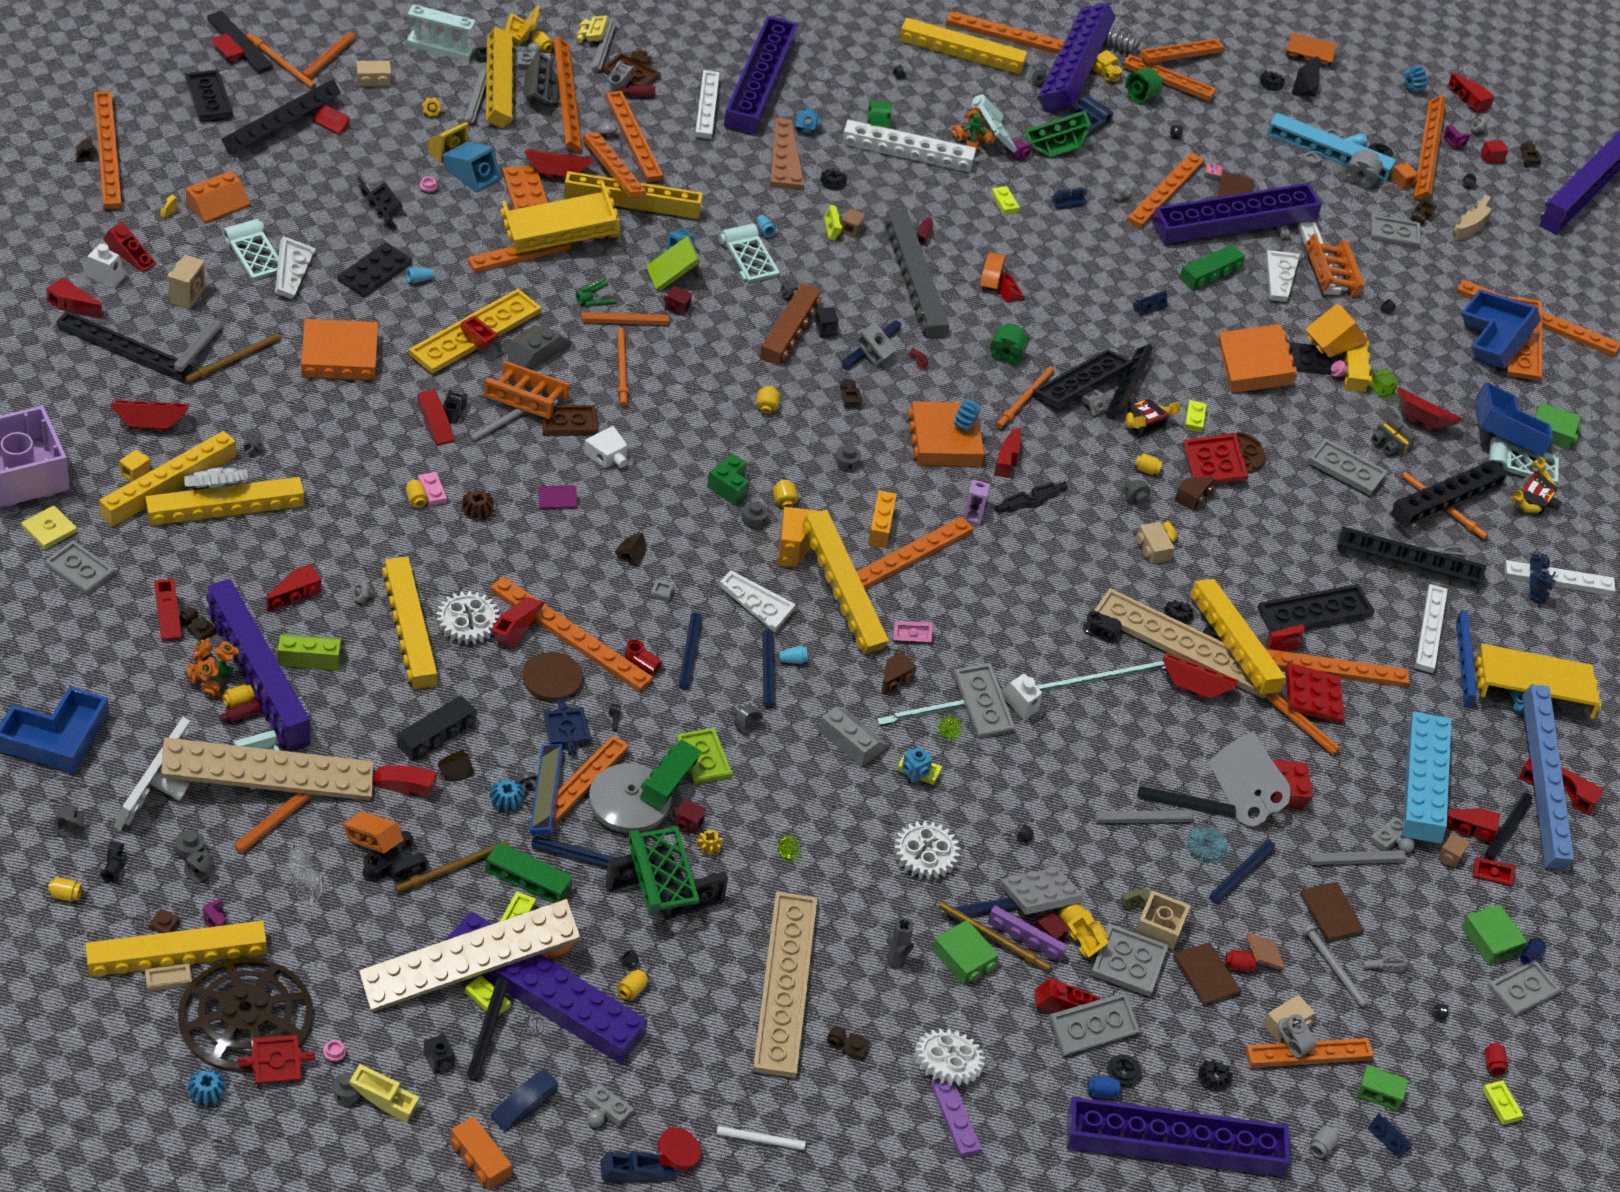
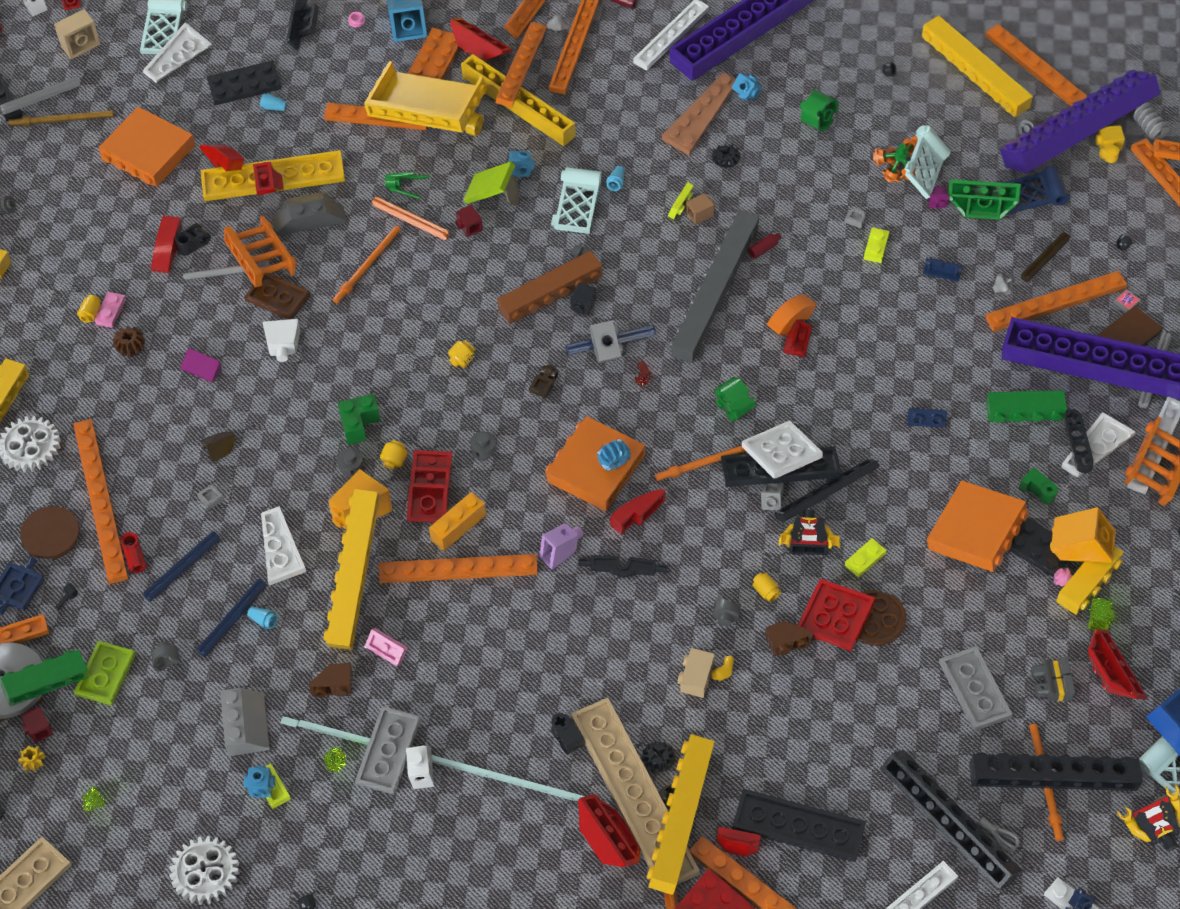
camera: 45 degrees right, 10 degrees up
(421, 329) = (223, 156): none -> red slope
(515, 622) = (55, 467): red slope -> none
(825, 493) = (429, 486): none -> red slope
(908, 146) = (827, 151): white brick -> none
(972, 186) = (855, 217): none -> light grey tile
(1077, 364) = (782, 449): none -> white plate
(1131, 162) = (1044, 257): none -> dark brown axle
(1144, 85) = (1127, 178): green brick -> none
(1269, 316) = (1039, 485): none -> green leg
(1286, 284) = (1081, 440): none -> black beam

